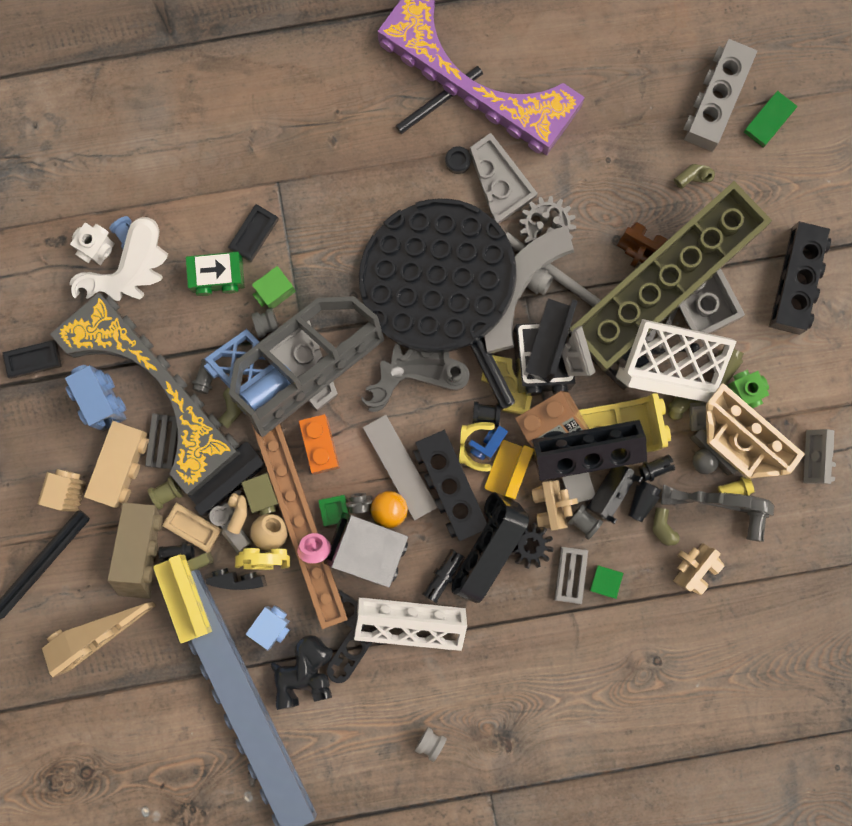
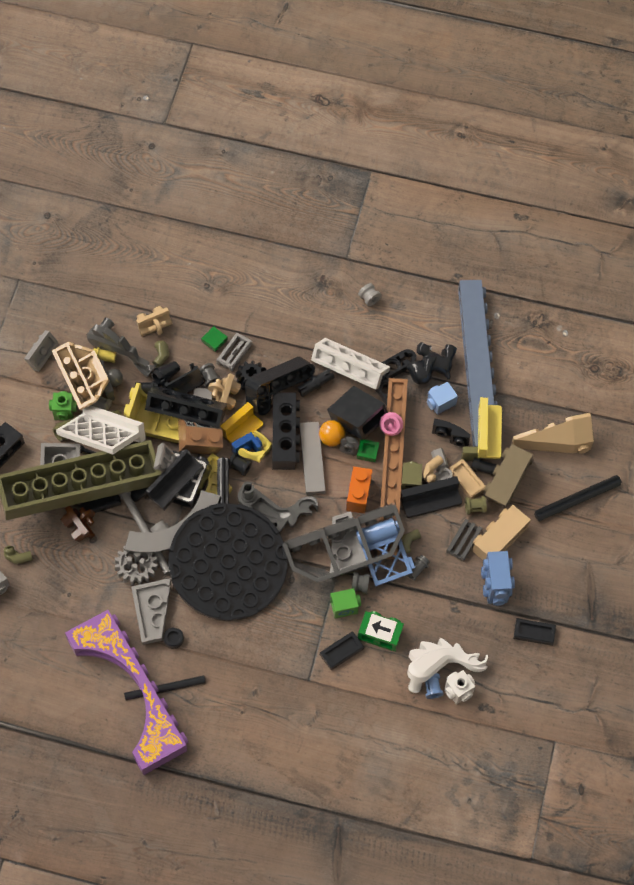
camera: 160 degrees left, 20 degrees down
(62, 491) = (544, 528): tan brick -> none
(201, 444) = (475, 625): dark grey arch -> none
(254, 560) = (426, 433): light yellow plate -> none
(269, 532) = (416, 450): tan piece -> none

